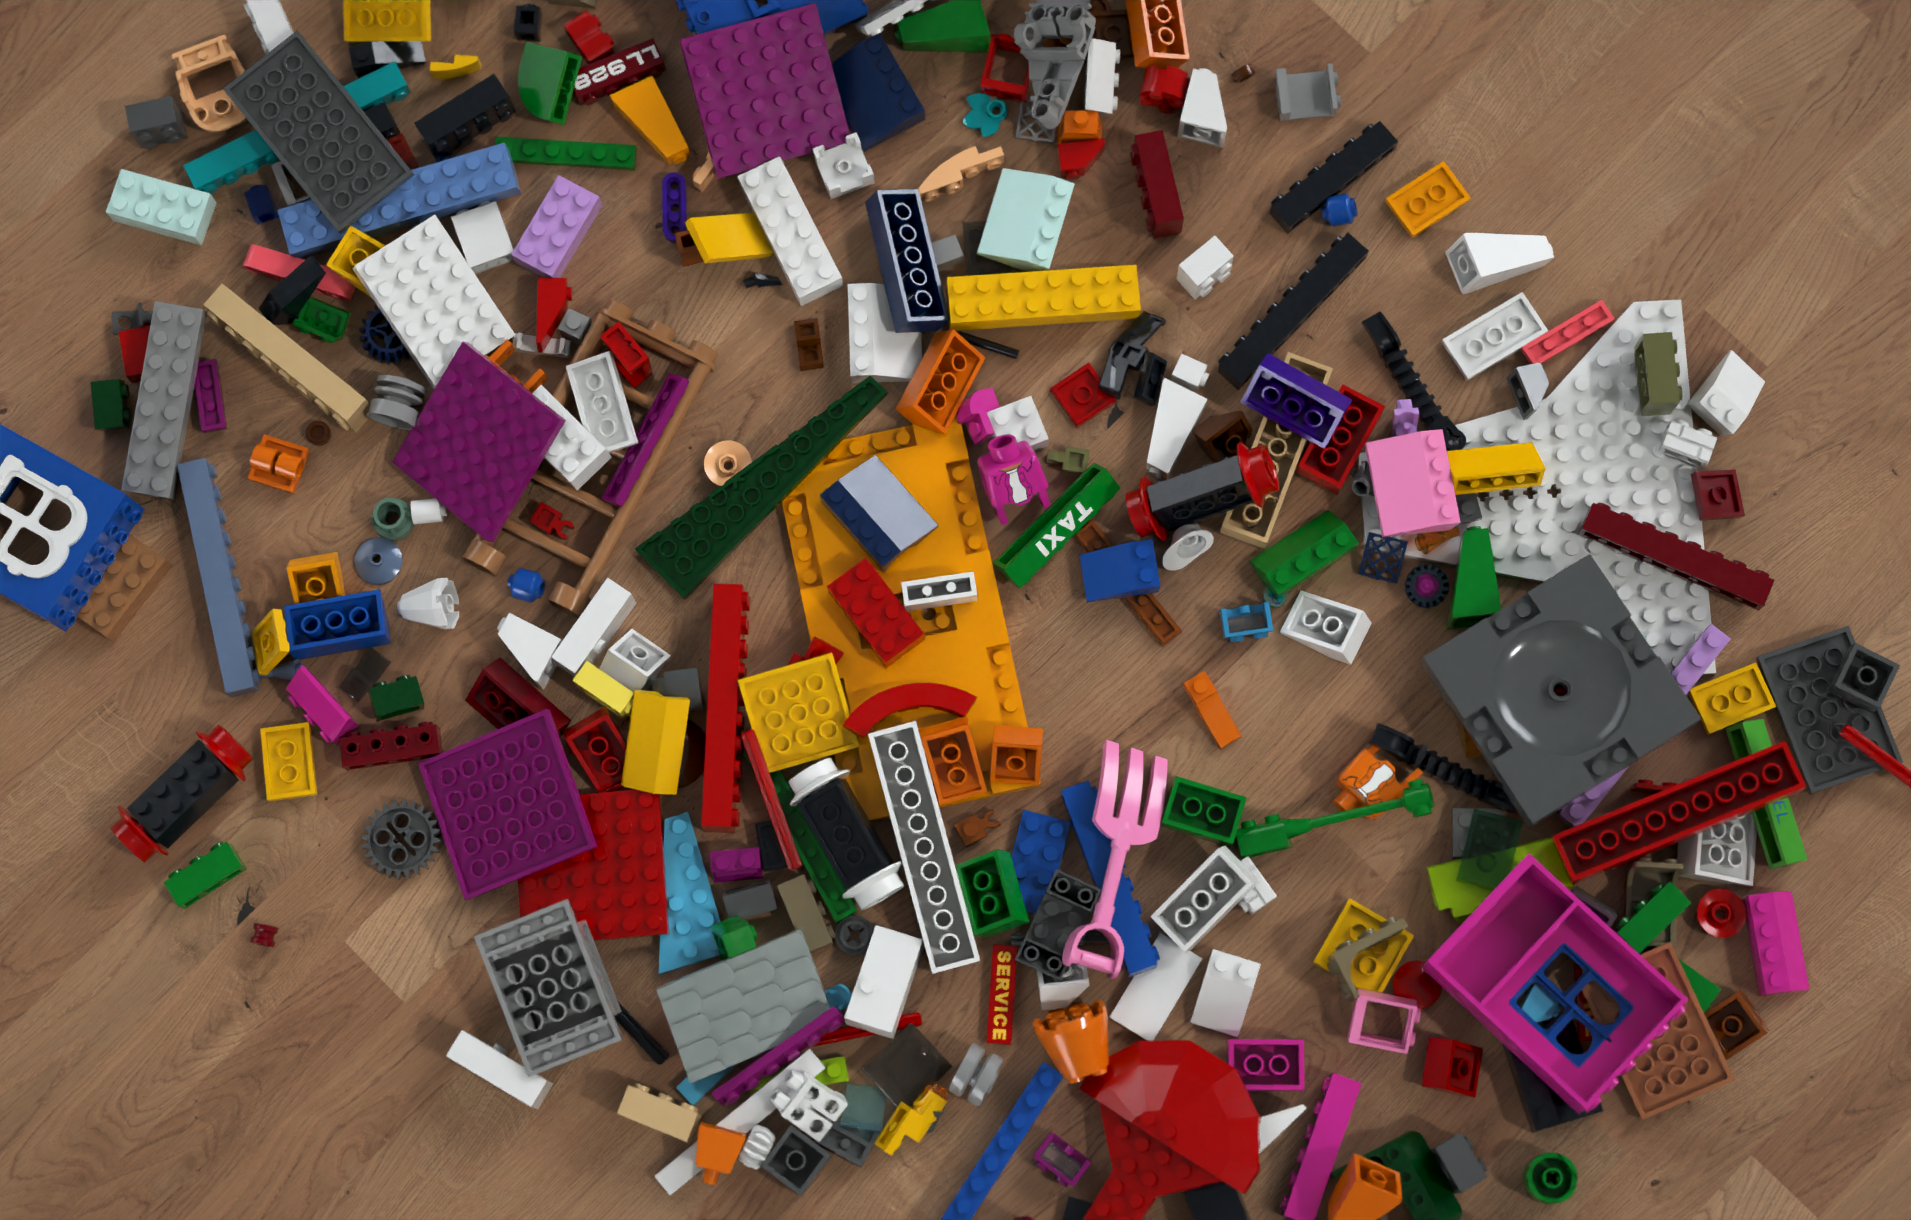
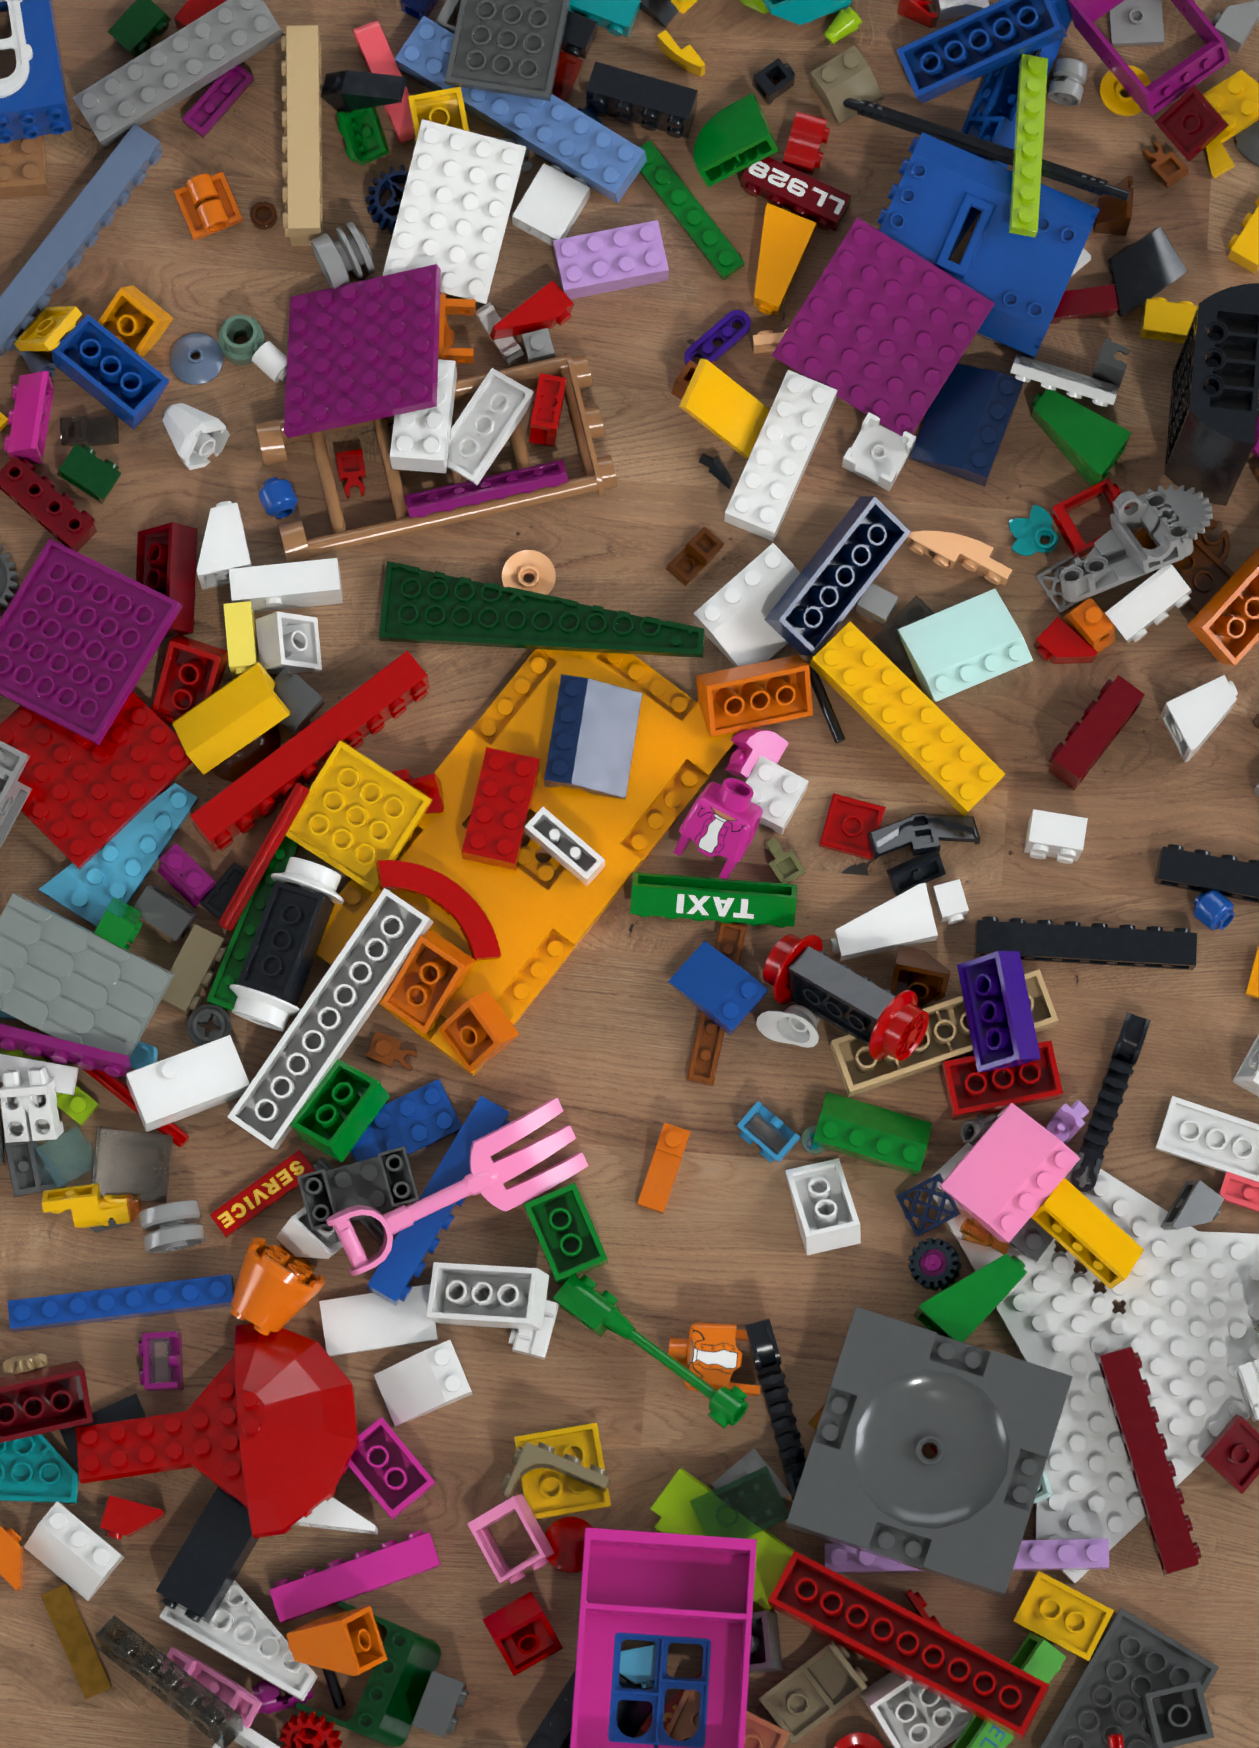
camera: 45 degrees right, 0 degrees up
(1164, 88) = (1188, 665): red brick -> none
(1652, 916) = (799, 1699): green brick -> none

